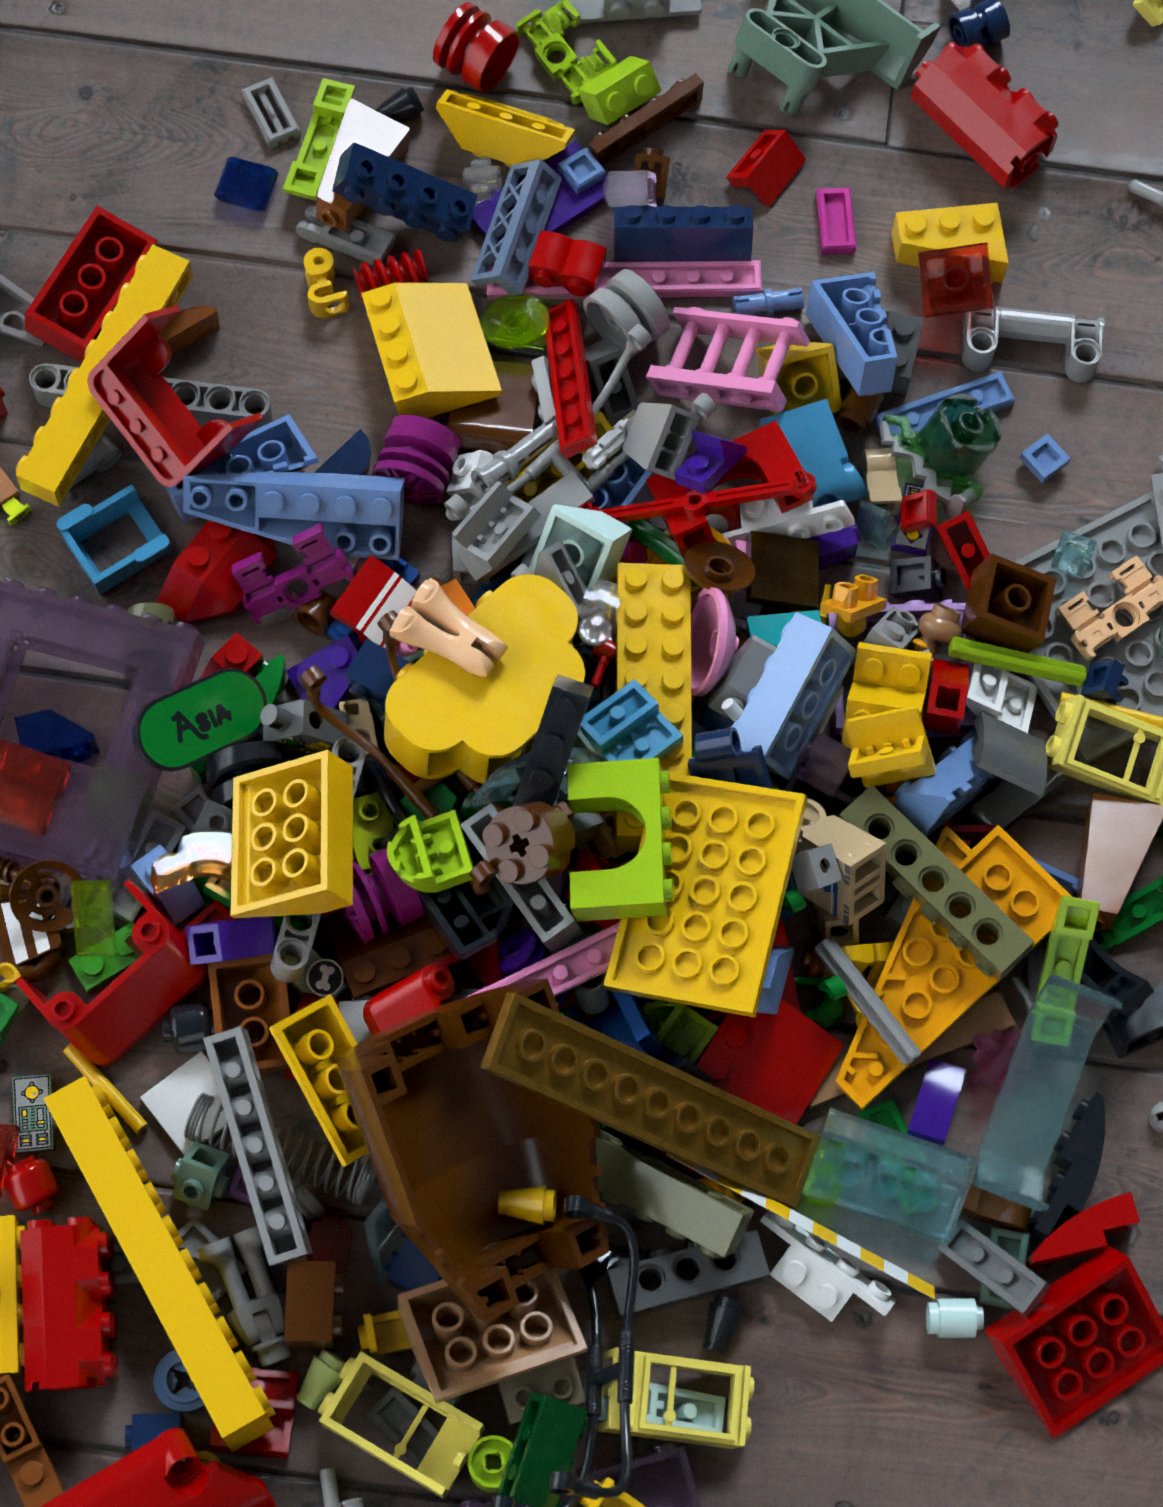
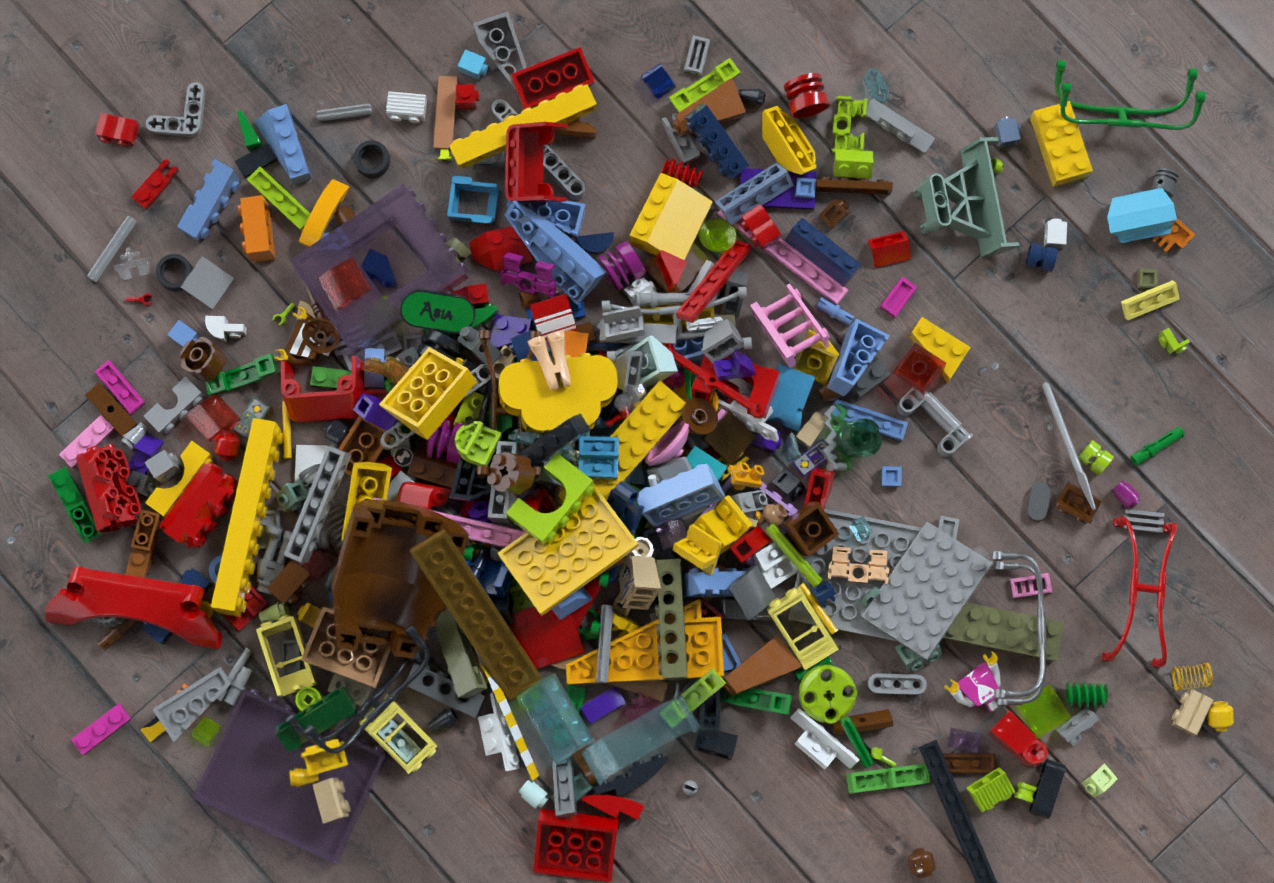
camera: 45 degrees right, 10 degrees up
(93, 917) = (332, 358): clear neon green plate -> none
(319, 276) = (655, 147): yellow leg -> none
(482, 178) = (759, 159): clear gear -> none
(492, 407) = (671, 268): none -> red slope
(529, 1204) = (399, 614): yellow cone -> none
(623, 305) = (766, 270): light grey wheel -> none
(630, 188) = (816, 215): clear purple brick -> none
(808, 870) = (618, 571): light grey piece -> none
(918, 511) = (813, 457): red tile -> none
(976, 108) = (1003, 301): red brick -> none

